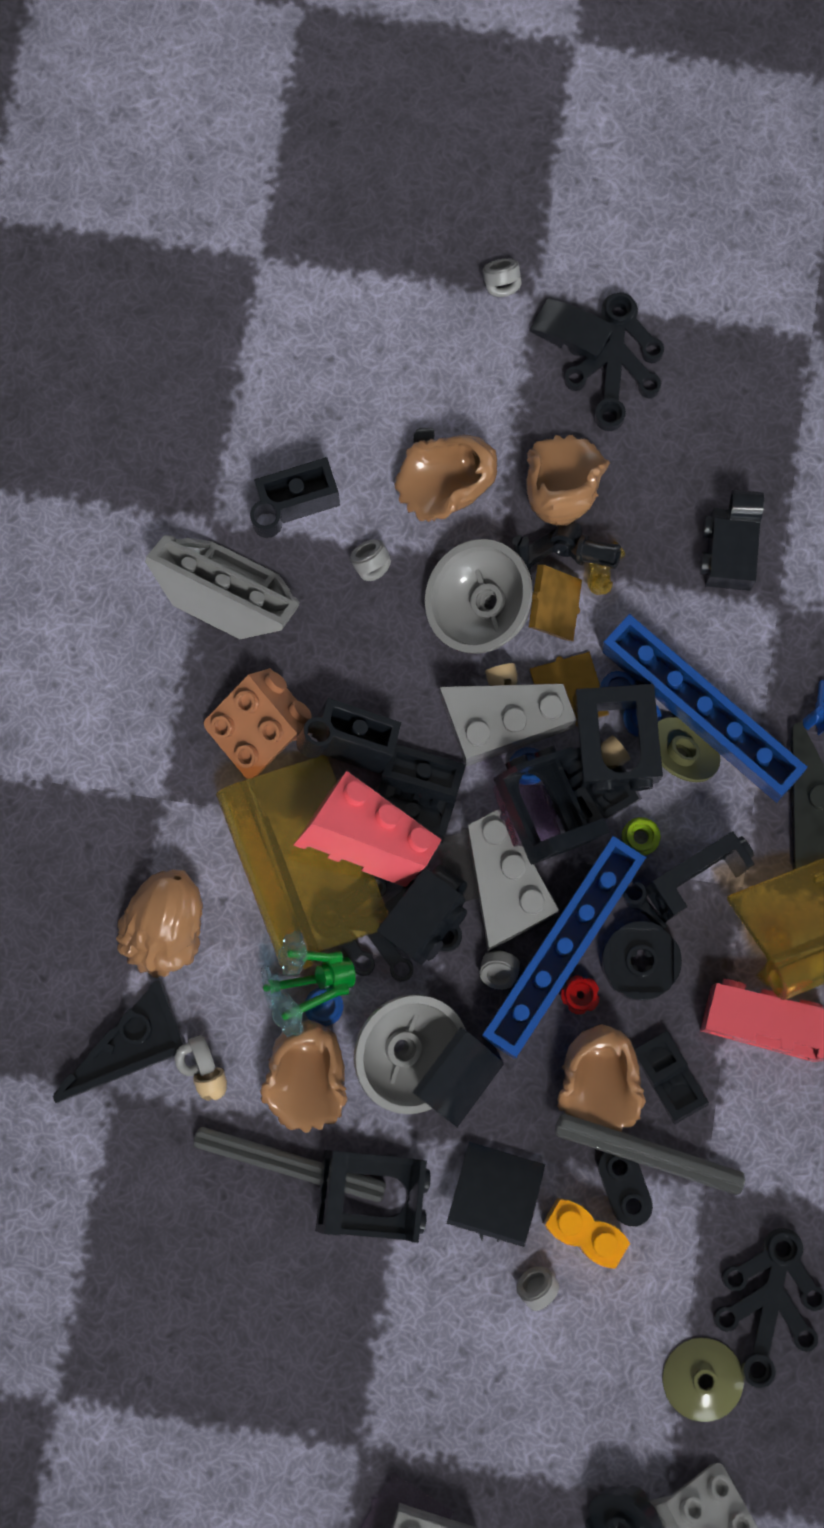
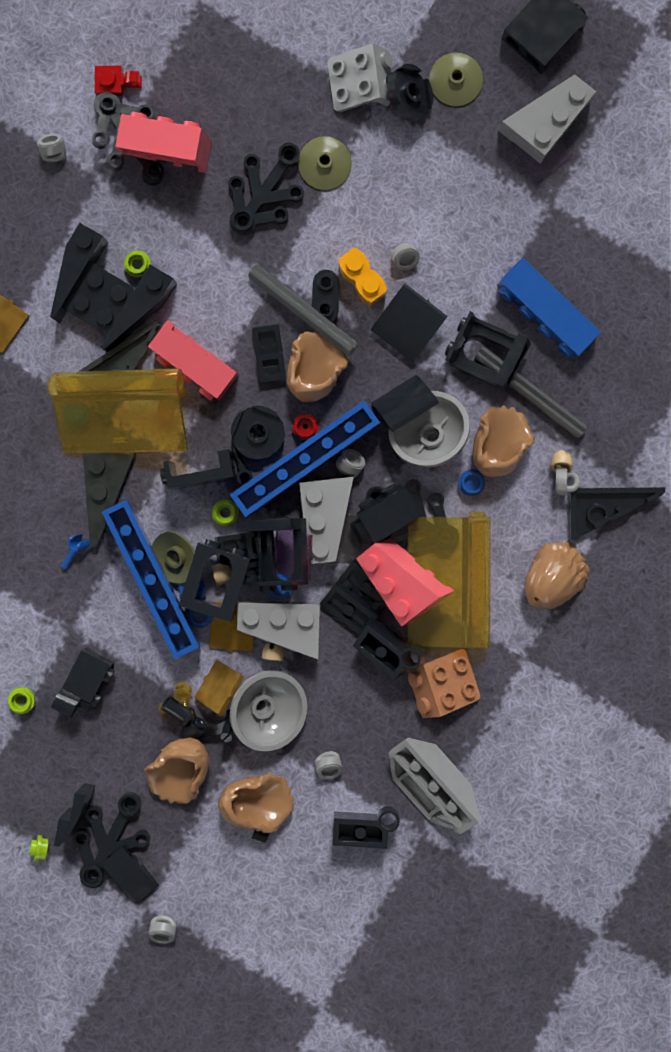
camera: 165 degrees left, 10 degrees up
(310, 1292) = (548, 309): none -> blue brick
(334, 974) = (457, 499): plant -> none
(675, 373) = (72, 817): none -> black slope
(702, 315) = (38, 848): none -> lime plate
(809, 481) = (13, 700): none -> lime plate

